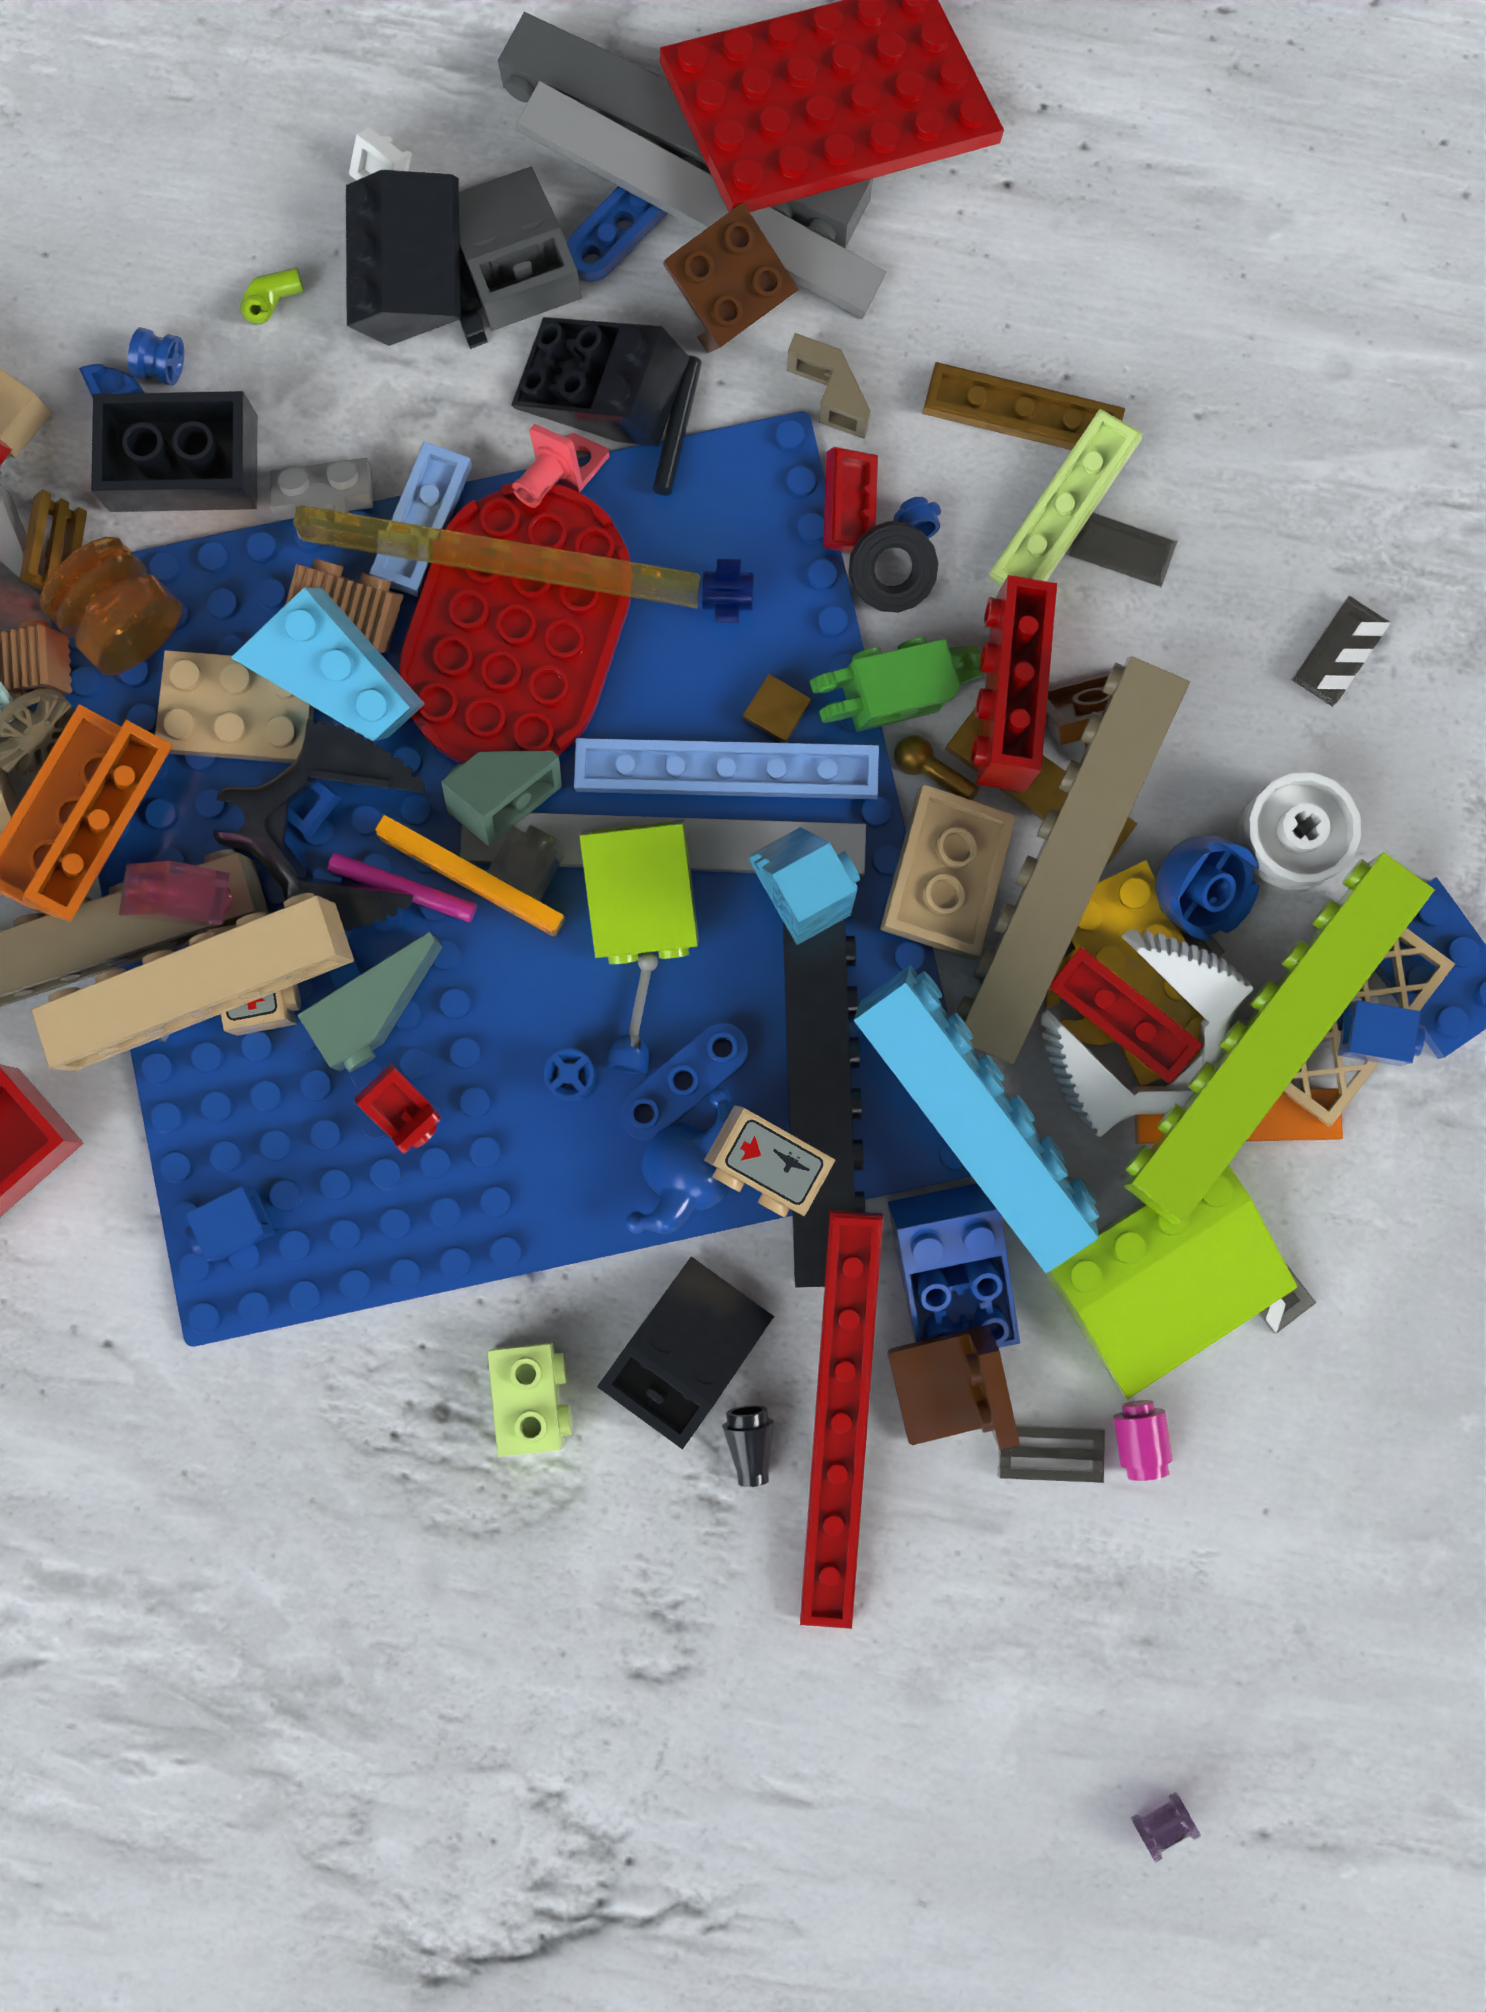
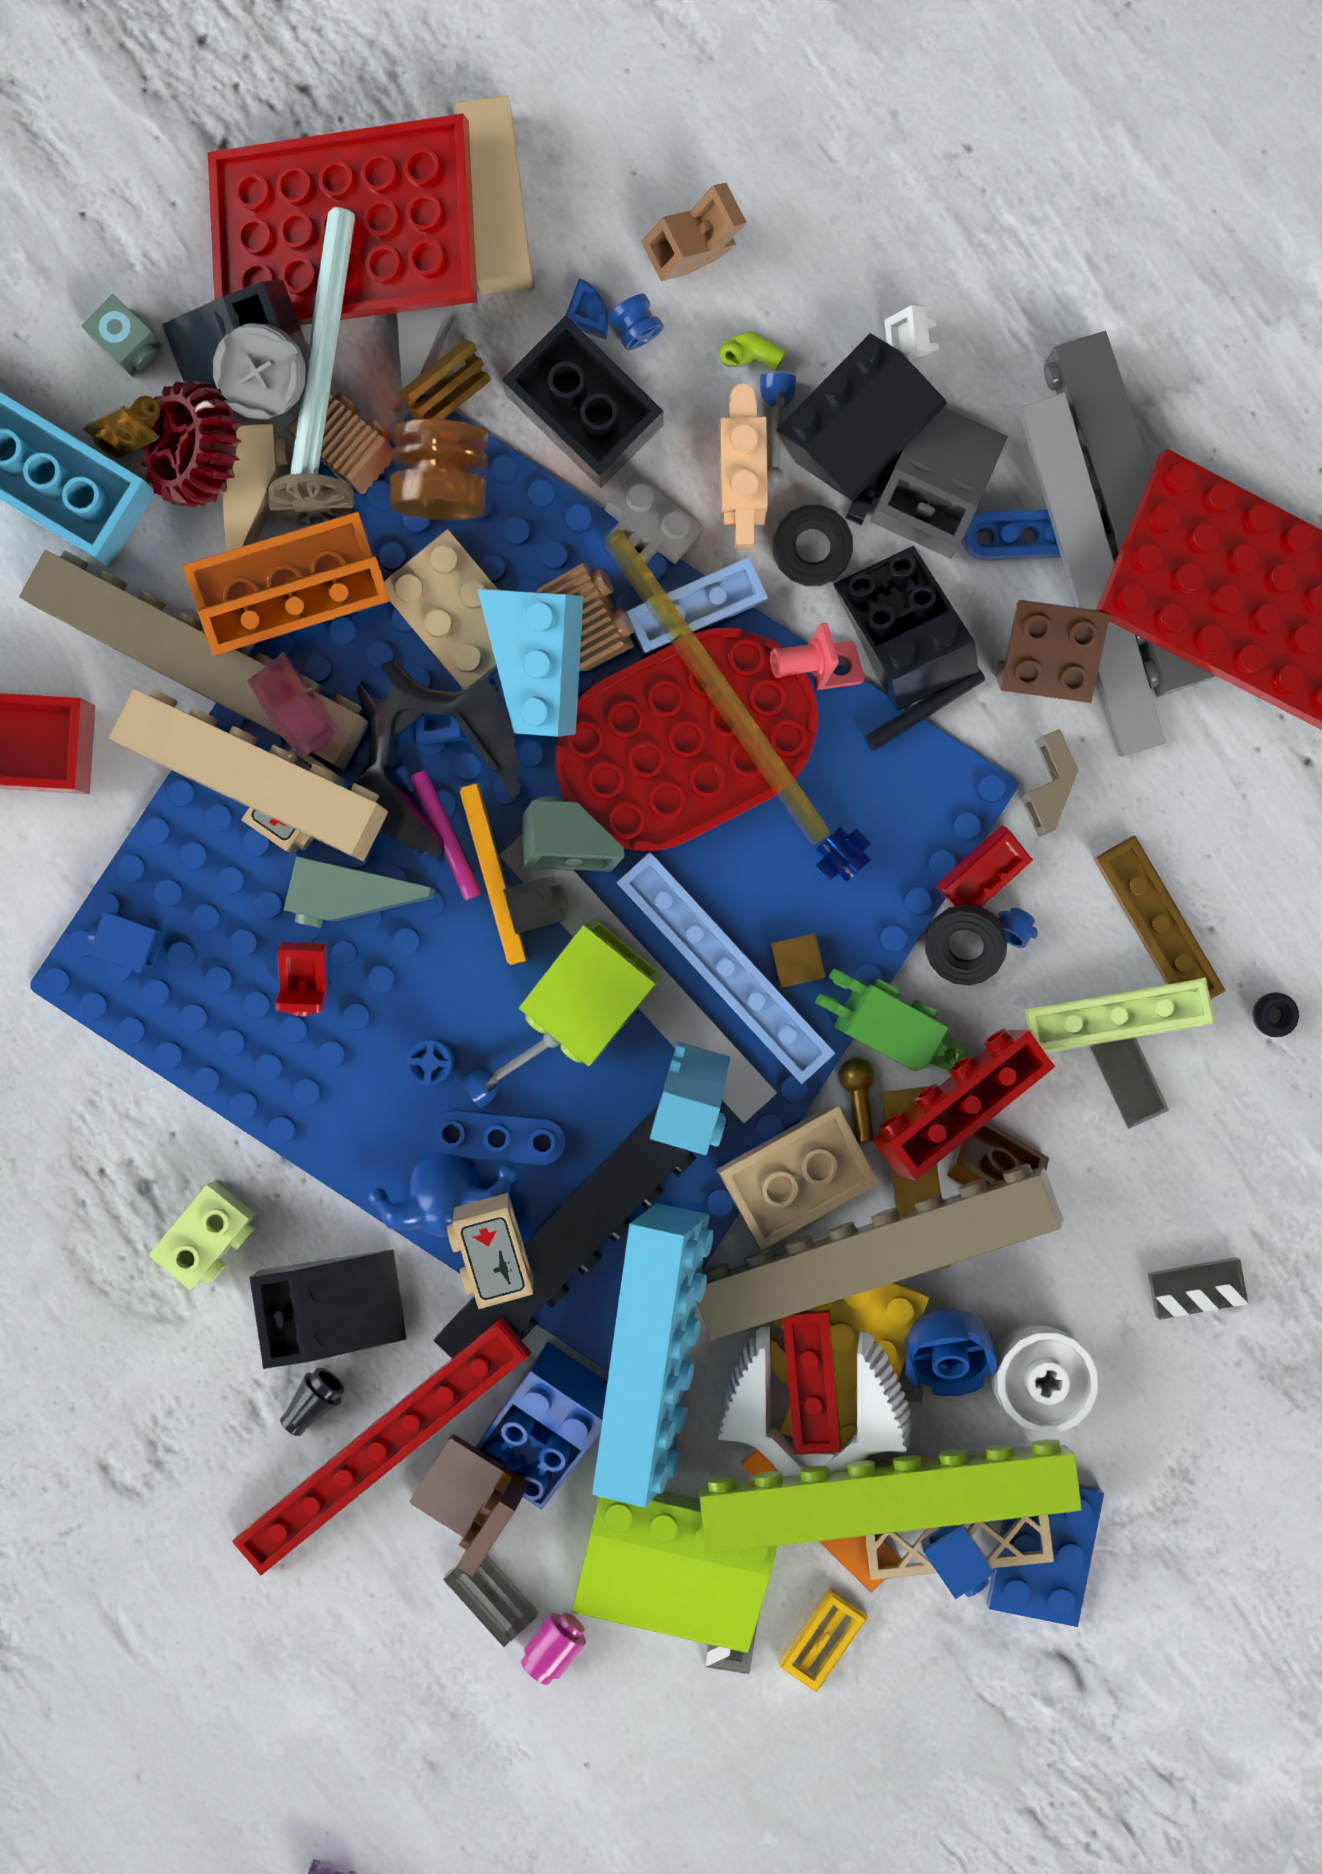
camera: 40 degrees right, 5 degrees up
(141, 247) = (695, 237): none -> medium nougat brick
(320, 303) = (776, 391): none -> hinge
(349, 380) = (743, 466): none -> light nougat hinge
(448, 366) = (824, 520): none -> black tyre
(1184, 376) = (1288, 1019): none -> black plate
(1325, 1221) = (843, 1607): none -> yellow tile

